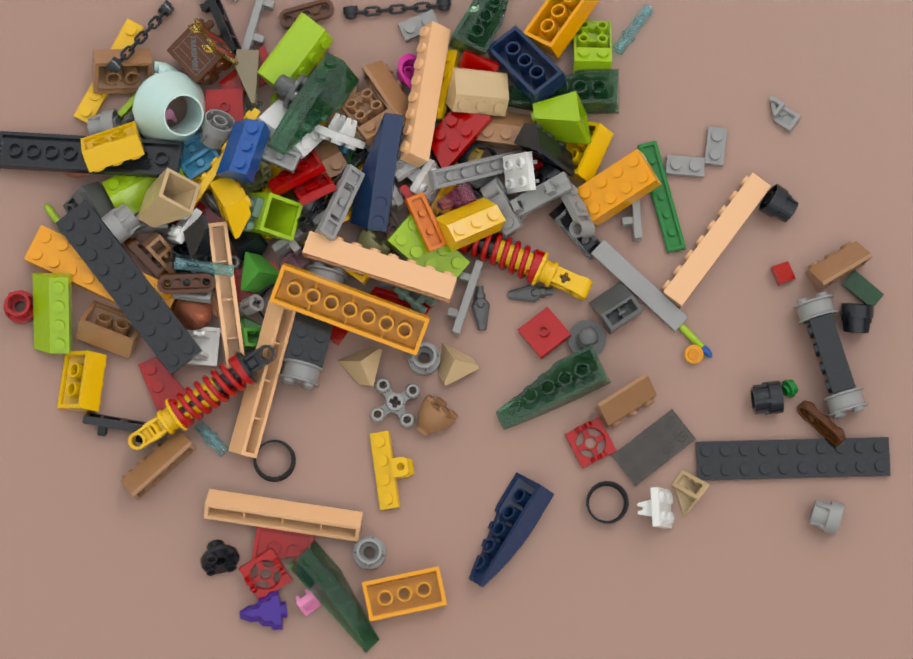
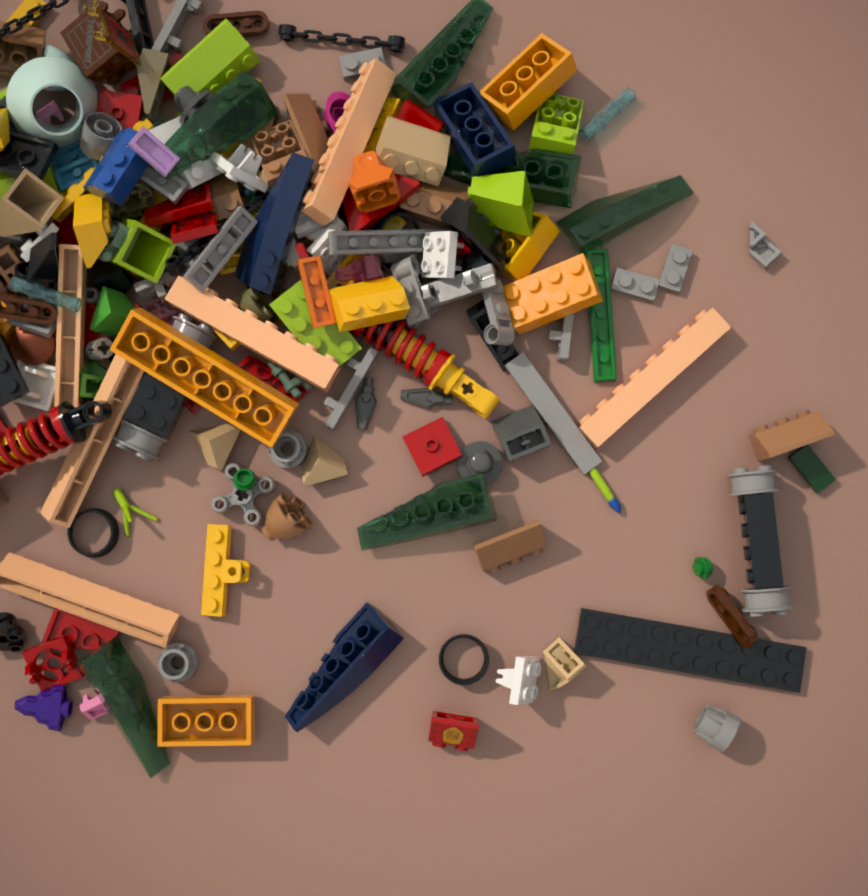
camera: 15 degrees right, 5 degrees up
(211, 438) = (26, 493): clear light blue pin -> none
(273, 134) = (153, 151): none -> lavender tile
(300, 434) = (124, 504): none -> lime plant
(395, 388) = (244, 479): none -> green plate
(454, 125) = (373, 183): none -> orange piece
(594, 424) = (479, 595): red piece -> none
(610, 562) = (453, 730): none -> red slope
(653, 447) = (531, 604): clear smoke plate -> none
(659, 109) = (616, 214): none -> clear green wedge
(693, 354) = (600, 505): light orange plate -> none
(767, 398) = (675, 575): black piece -> none
(778, 203) = (735, 349): black piece -> none
(783, 273) = (722, 431): red slope -> none
(856, 317) = (799, 500): black piece -> none

